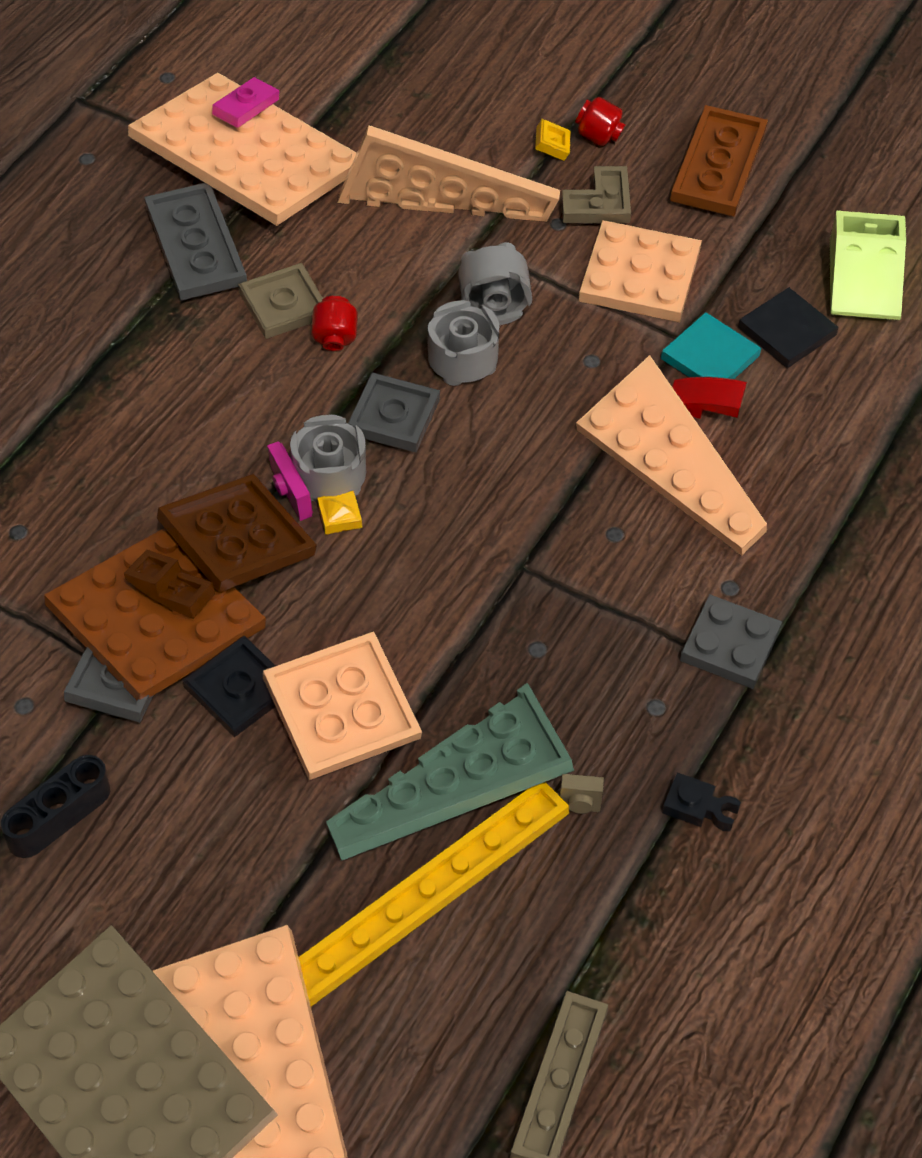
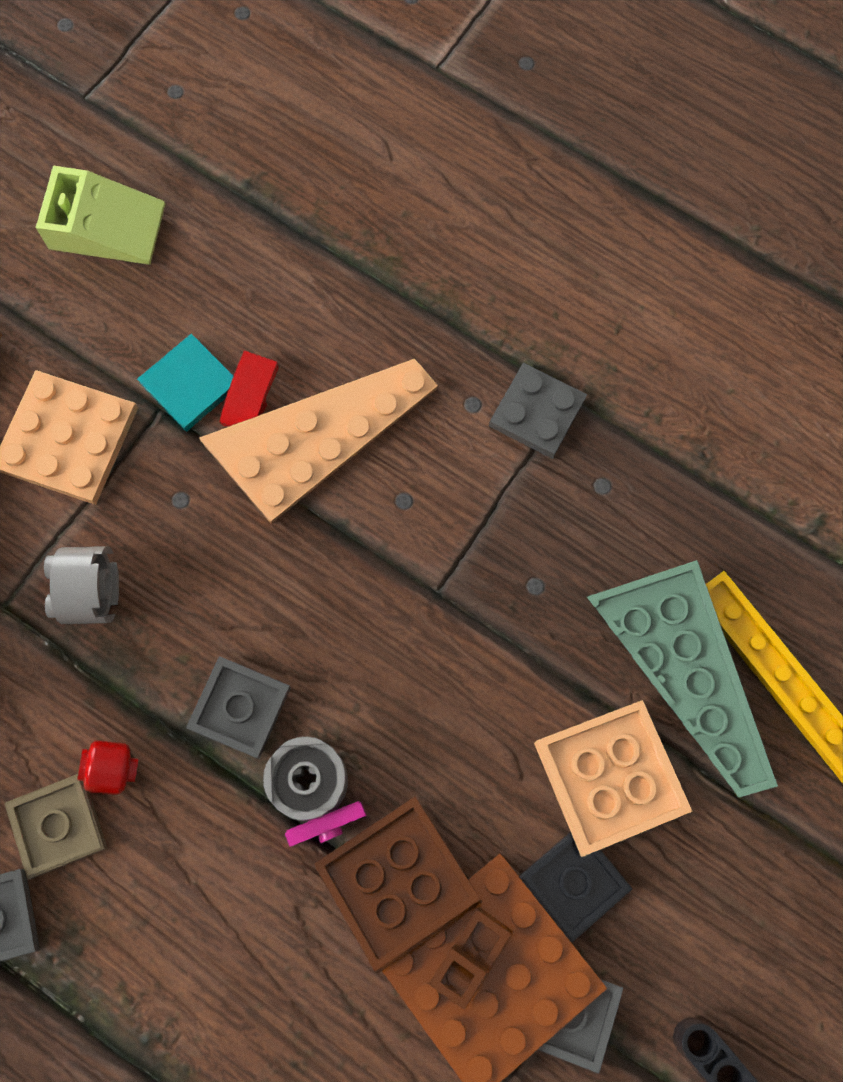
camera: 85 degrees left, 20 degrees up
(339, 512) = (365, 771): yellow tile -> none
(463, 342) = (138, 618): light grey brick -> none
(582, 792) = (710, 557): dark tan plate -> none
(695, 800) = (707, 463): black plate -> none
(788, 327) = (162, 305): black tile -> none

